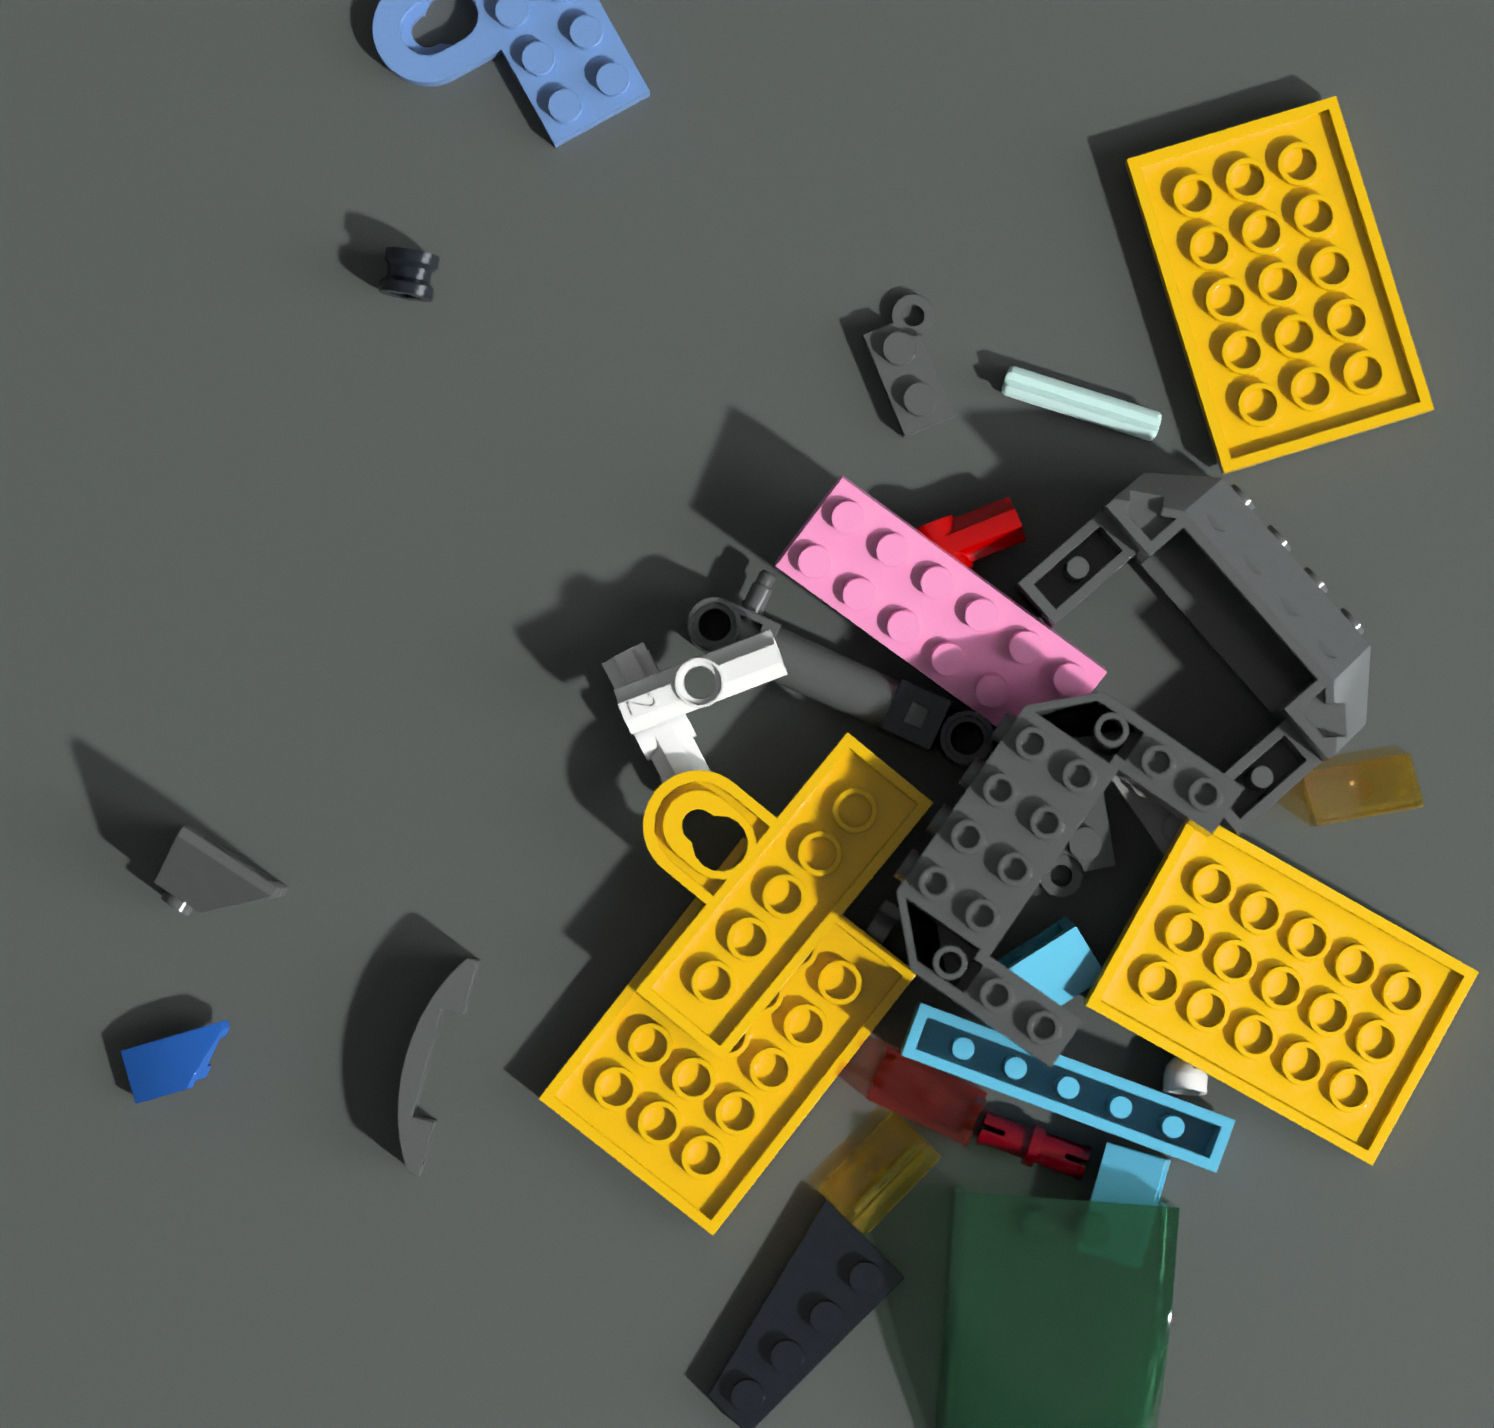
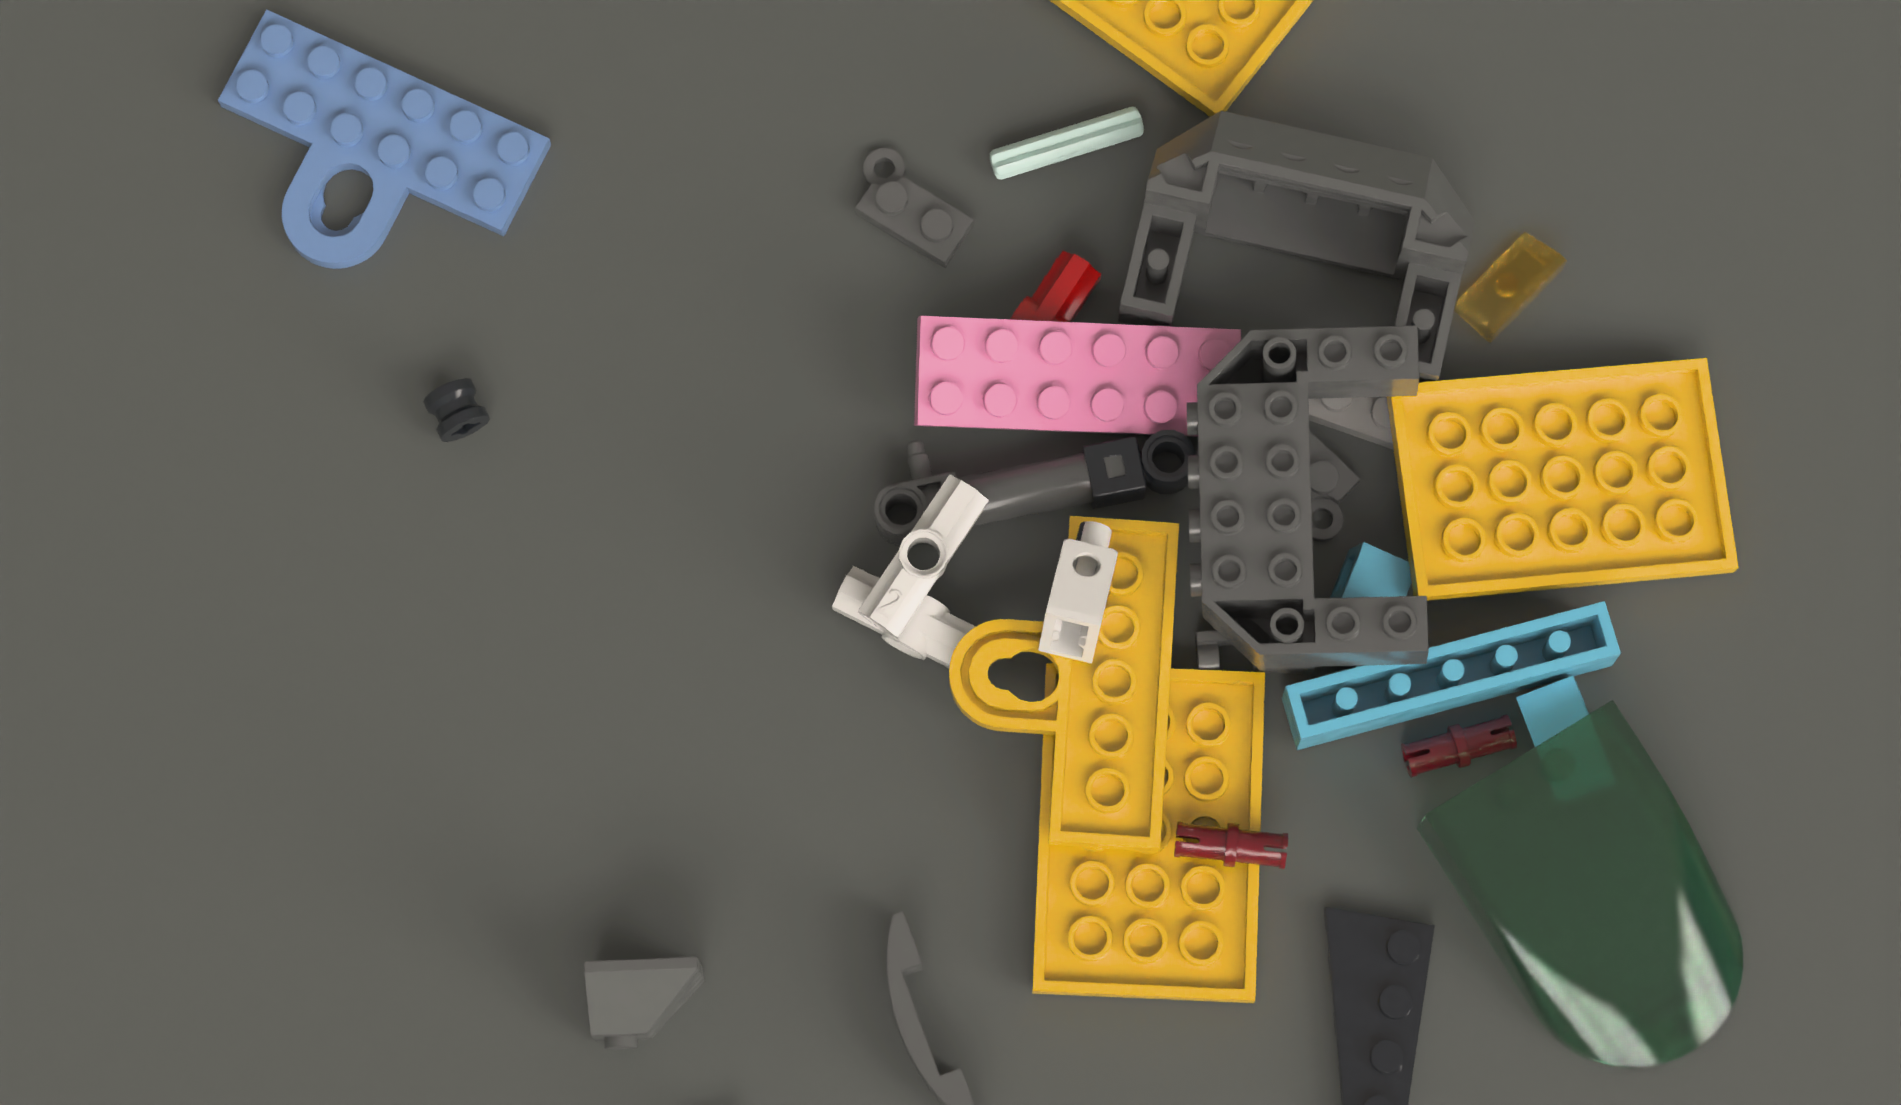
camera: 30 degrees left, 10 degrees down
(783, 1098) = (1231, 845): none -> dark red pin
(792, 821) = (1079, 594): none -> white torso
(879, 1172) = (1352, 856): clear yellow slope -> none
(926, 1096) = (1344, 768): clear red hinge -> none
(1184, 1079) = (1539, 604): white hinge -> none

